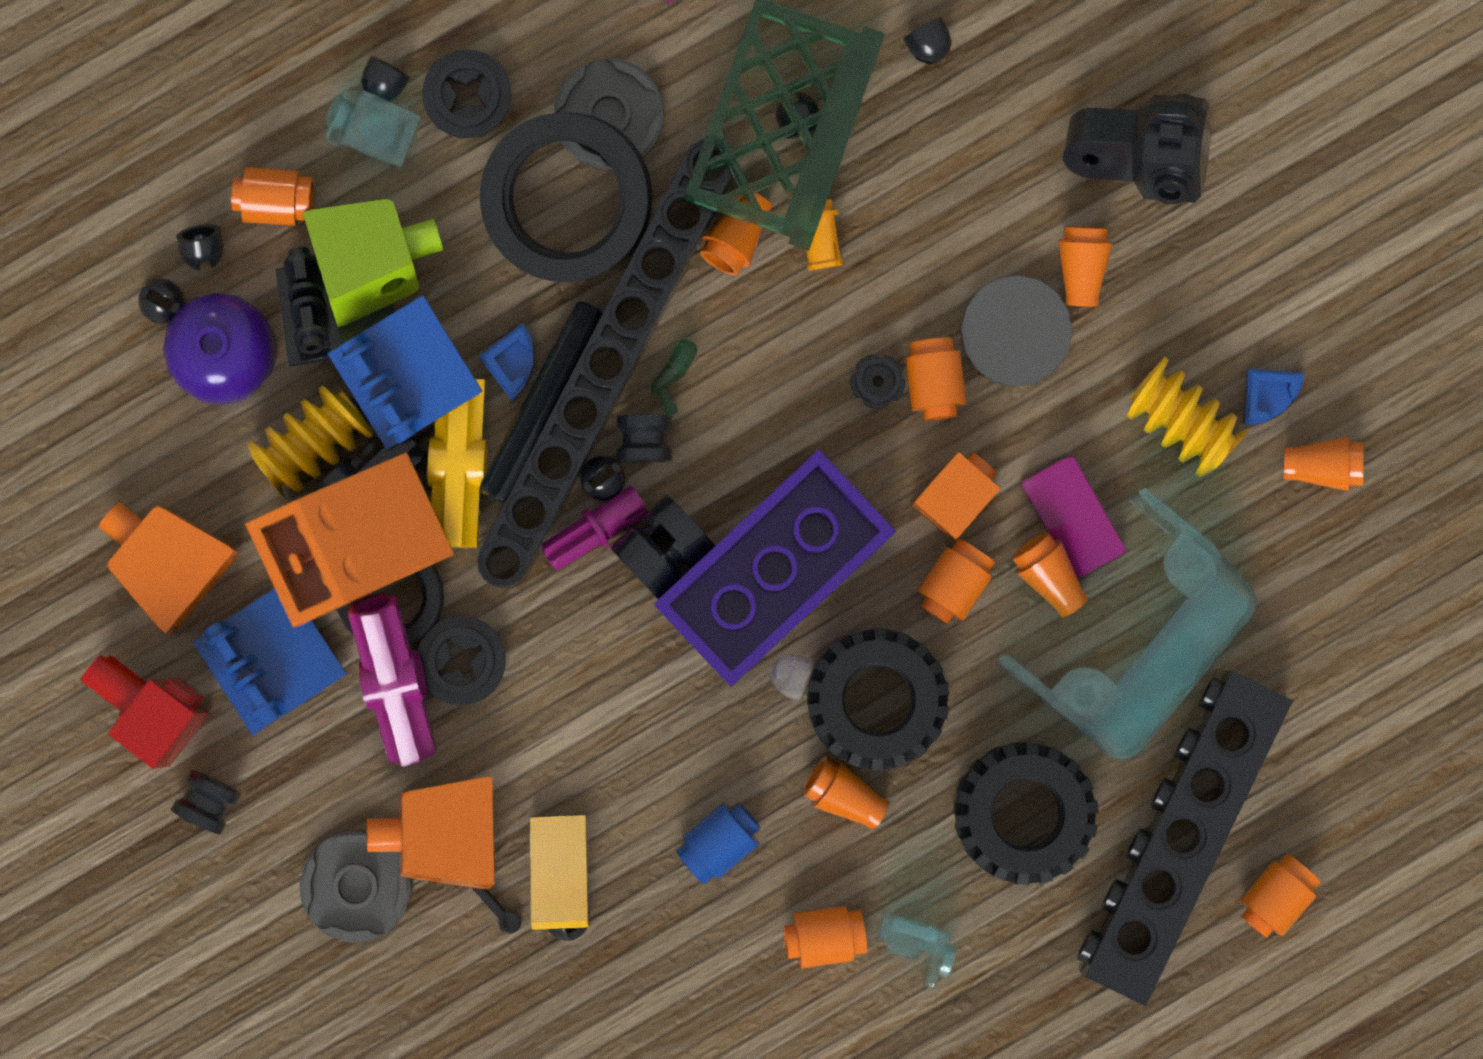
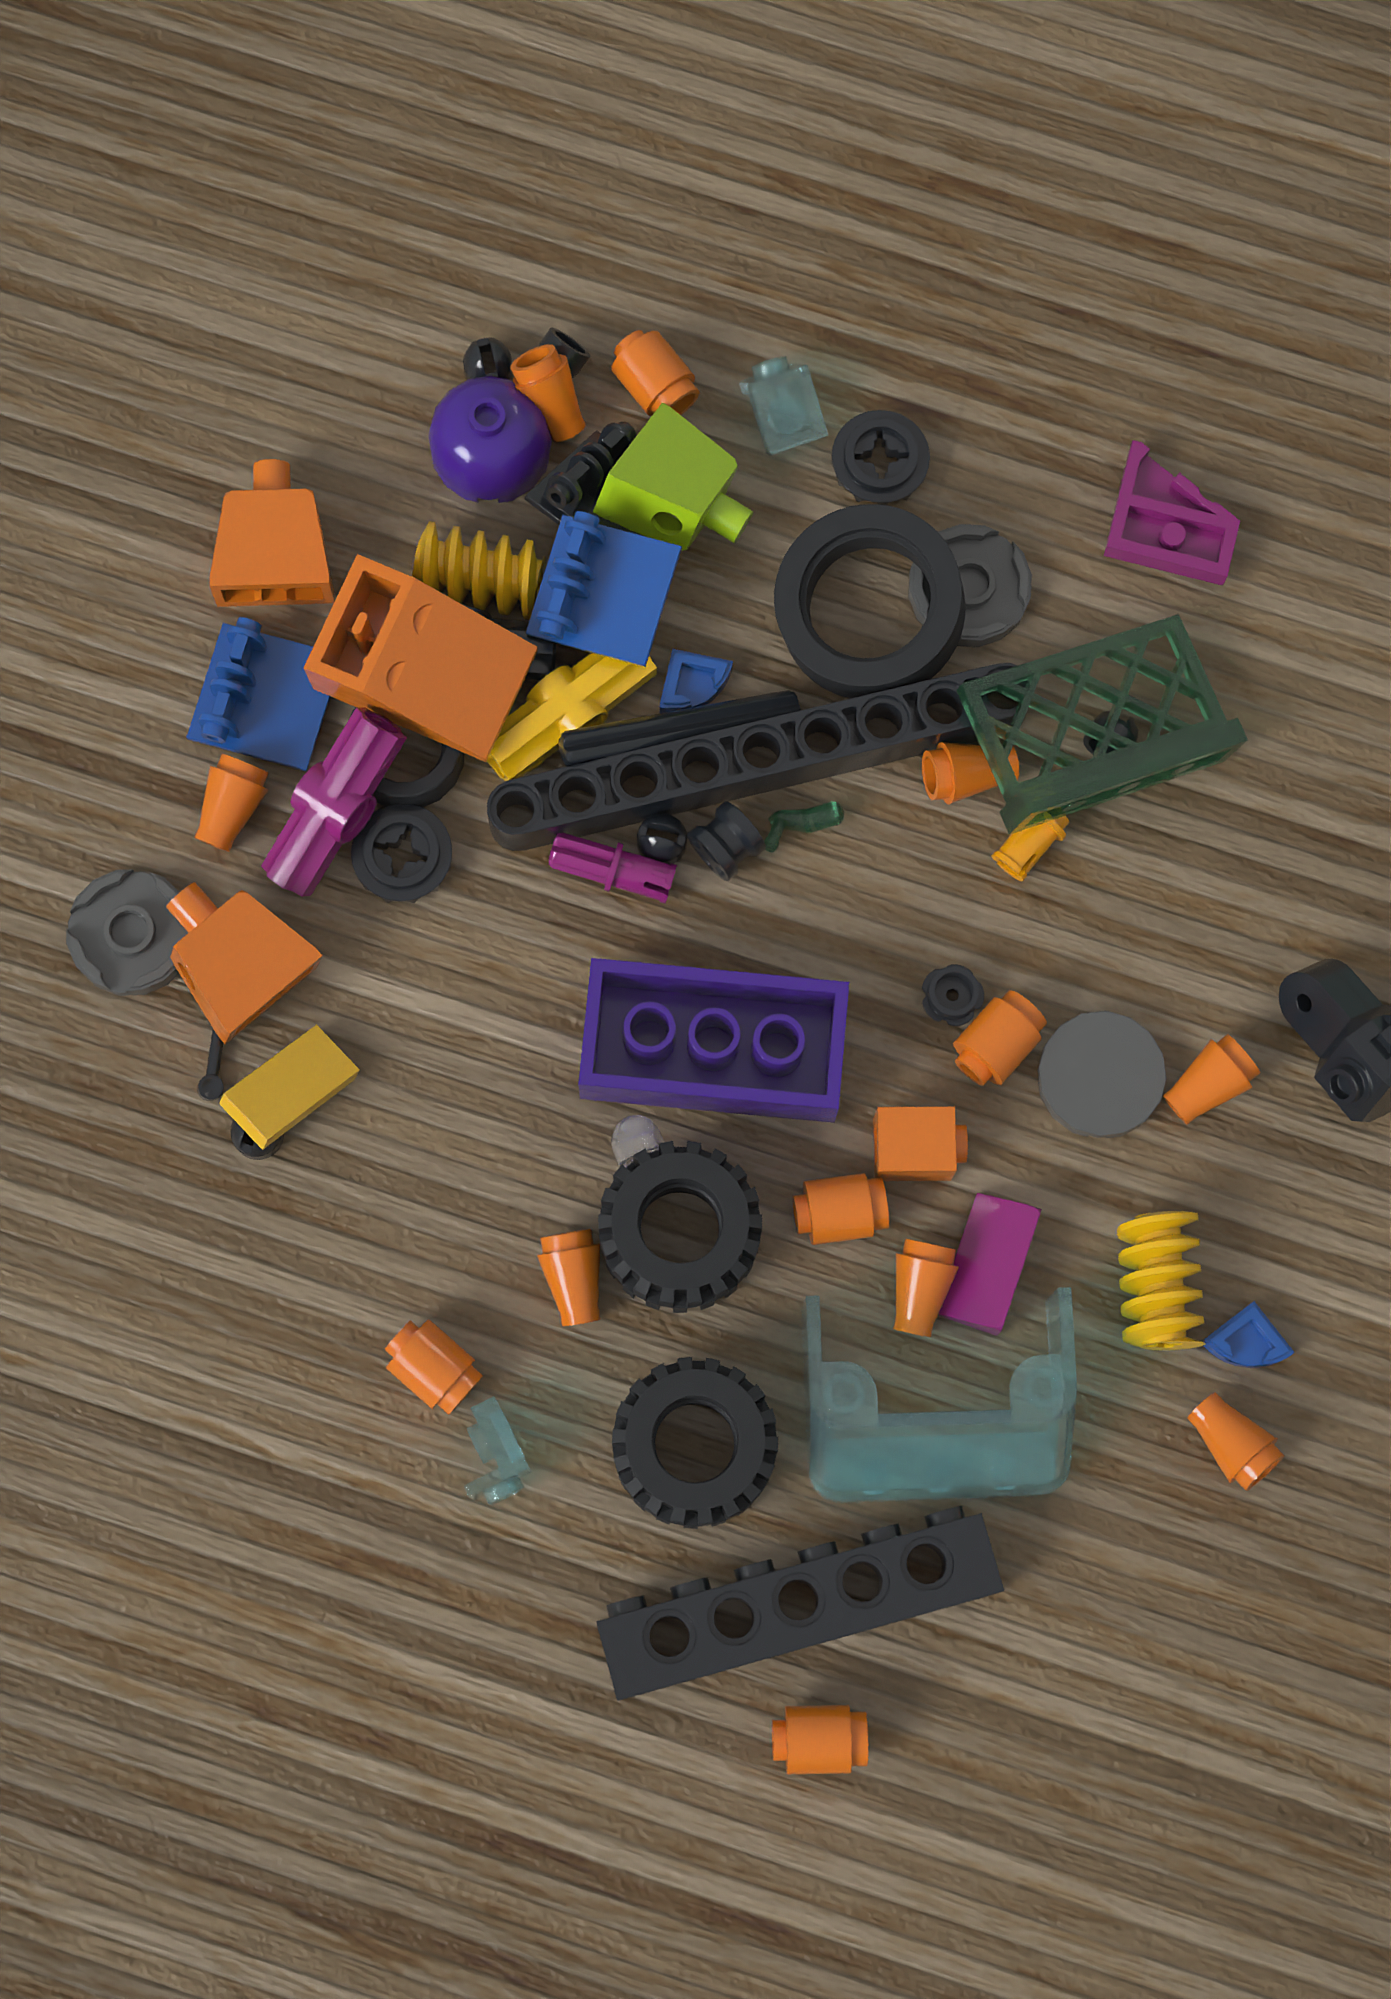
camera: 45 degrees right, 10 degrees down
(154, 715) = (126, 634): red brick -> none
(206, 802) = (94, 744): black wheel -> none
(218, 278) = (548, 383): none -> orange cone
(324, 744) = (229, 801): none -> orange cone
(383, 79) = (831, 381): black hinge -> none
(648, 561) = (631, 916): black wheel -> none
(719, 842) = (435, 1202): blue brick -> none
(930, 42) = (1275, 788): black hinge -> none

